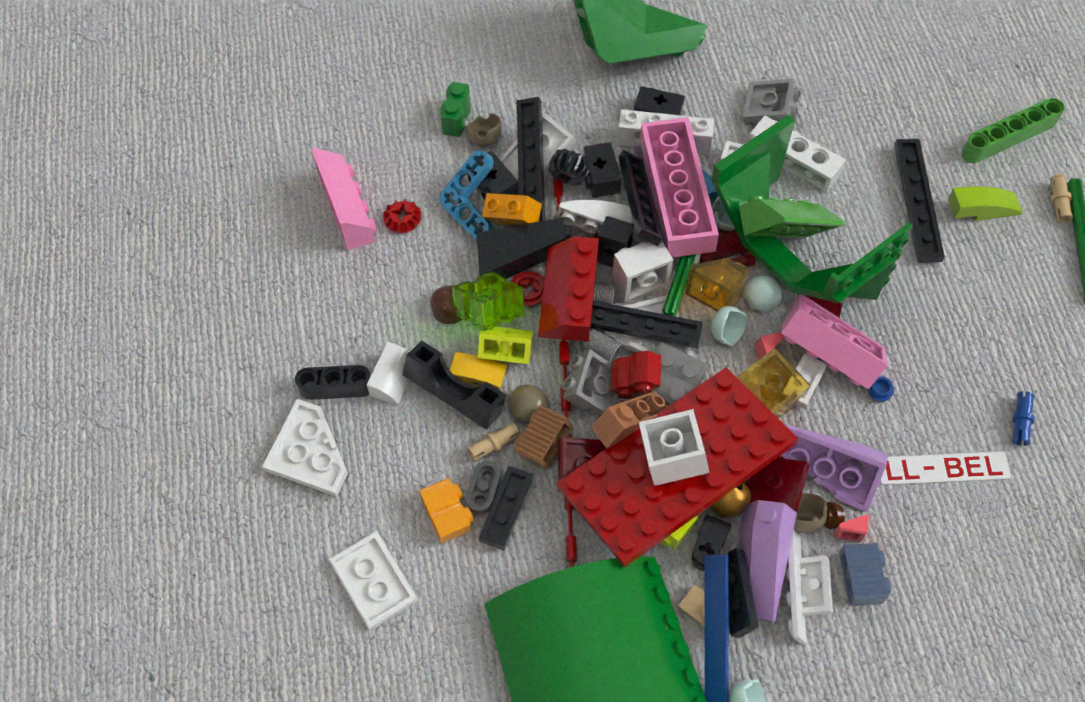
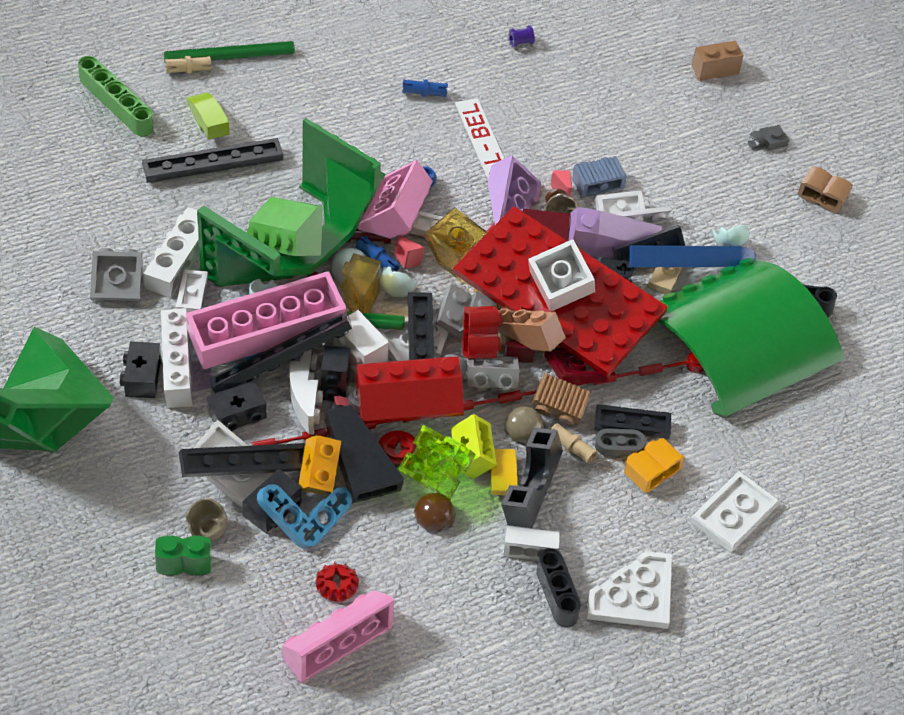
camera: 110 degrees left, 10 degrees down
(569, 167) = (255, 421): black gear -> none
(769, 320) = (377, 253): none -> blue pin

